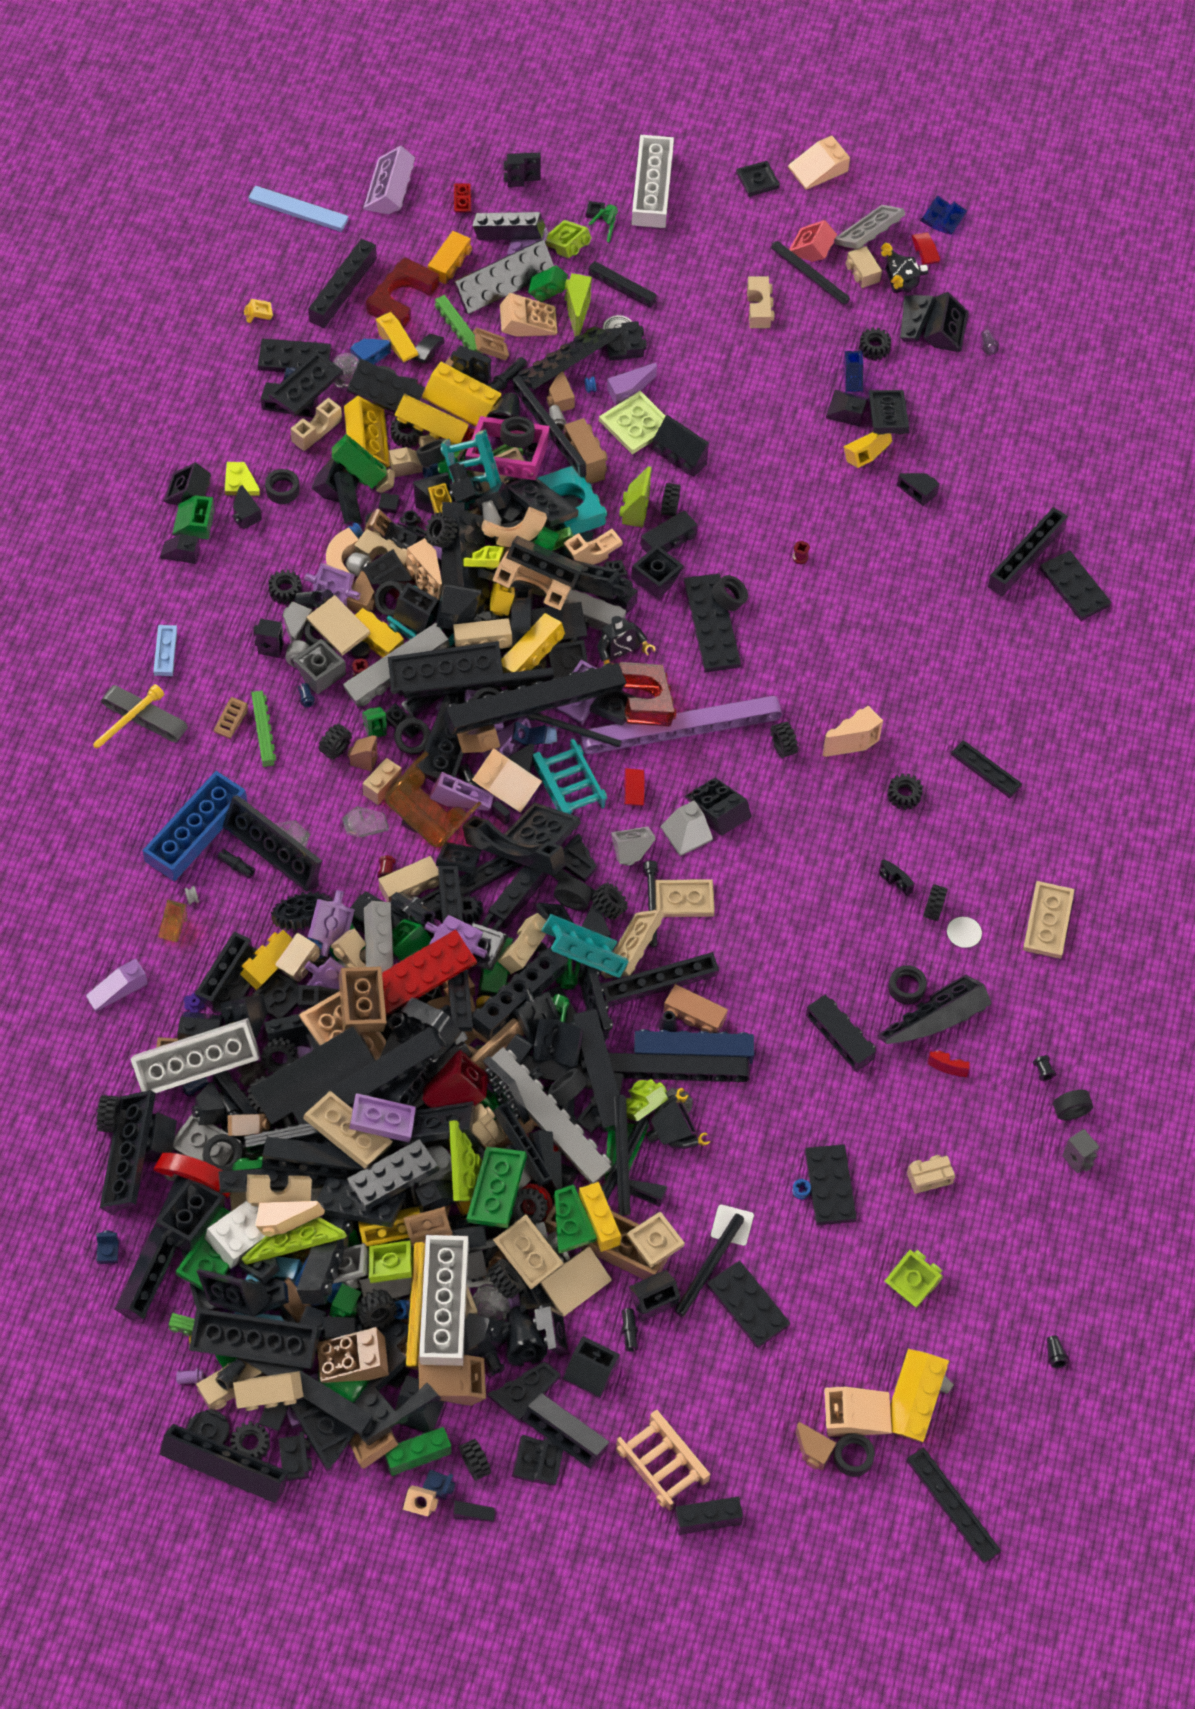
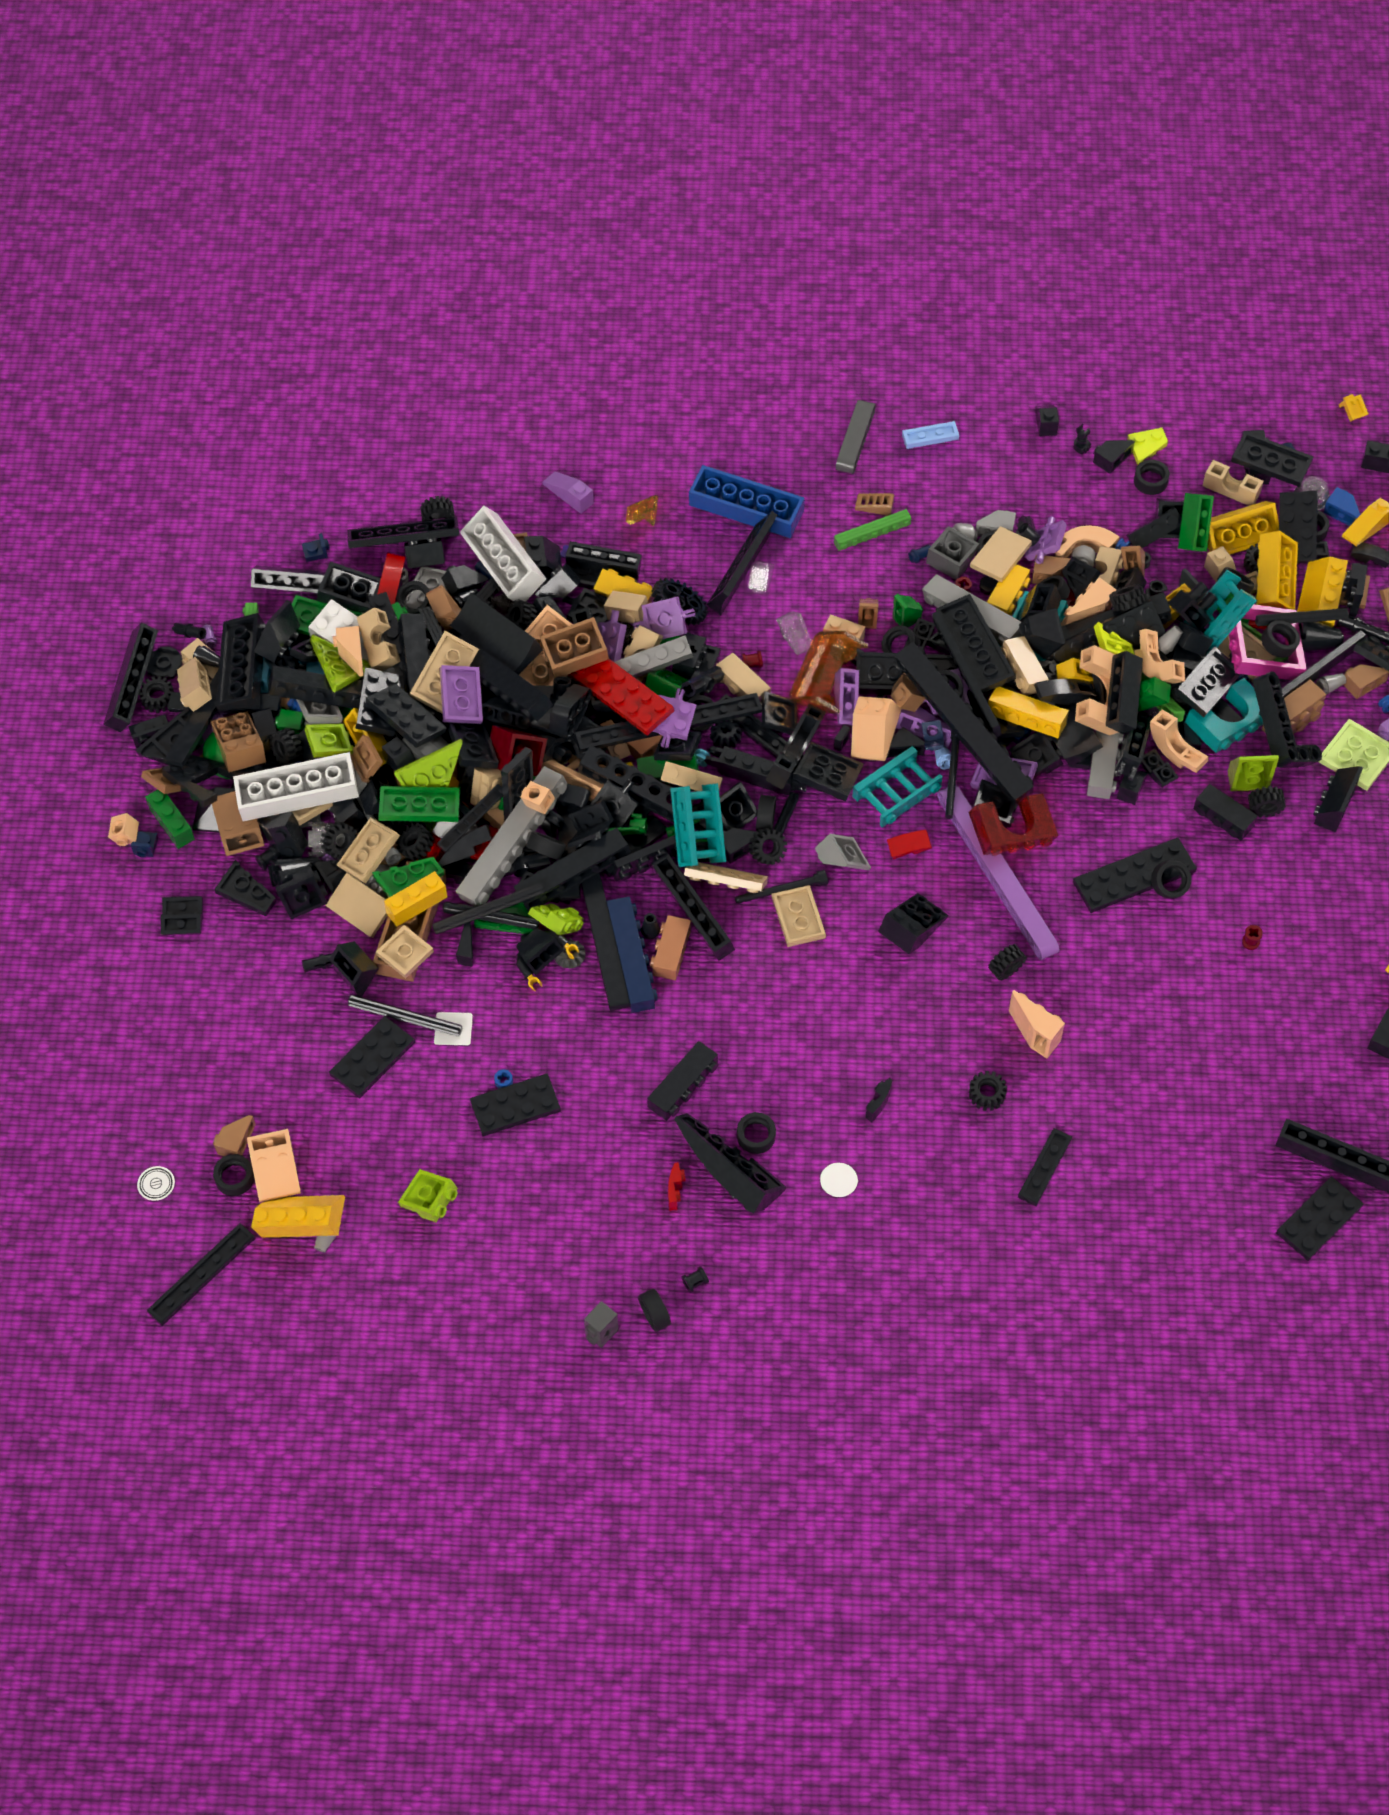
camera: 80 degrees right, 0 degrees up
(155, 693) = (872, 433): yellow piece -> none
(177, 1394) = (189, 630): none -> black axle
(186, 483) = (1120, 405): black slope -> none
(191, 895) = (676, 519): light grey bush -> none
(195, 517) = (1091, 416): green slope -> none
(221, 531) = (1081, 443): none -> black piece
(236, 863) = (721, 545): black pin -> none
(269, 637) = (968, 504): brick -> none
(279, 354) = (1312, 439): black plate -> none
(284, 578) = (1040, 500): black tyre -> none
(335, 741) = (872, 584): black tyre -> none
(387, 482) = (1191, 558): tan plate -> none
(388, 502) = (1169, 567): black tile -> none
(475, 1459) = (167, 861): black tyre -> none
(475, 1512) = (124, 875): black piece -> none
(498, 409) = (1303, 616): none -> black axle
(529, 1066) = (542, 802): none -> light nougat brick
(565, 1431) = (210, 927): black brick -> none
(578, 859) = (812, 813): black wing -> none
(591, 1366) = (278, 936): black slope -> none
(621, 638) = (1075, 792): black torso -> none
(629, 463) = (1278, 725): none -> black beam
(656, 571) = (1171, 807): black slope -> none
(670, 1441) = (205, 1030): light nougat fence -> none
(687, 828) = (876, 901): light grey slope -> none
(708, 1515) = (149, 1061): black brick -> none
(842, 1535) = (156, 1183): none -> white sticker
(930, 1174) = (545, 1190): tan brick -> none
(935, 902) = (856, 1138): black tyre -> none
(1048, 919) = (875, 1256): tan plate -> none
(1056, 1353) = (377, 1340): black cone -> none

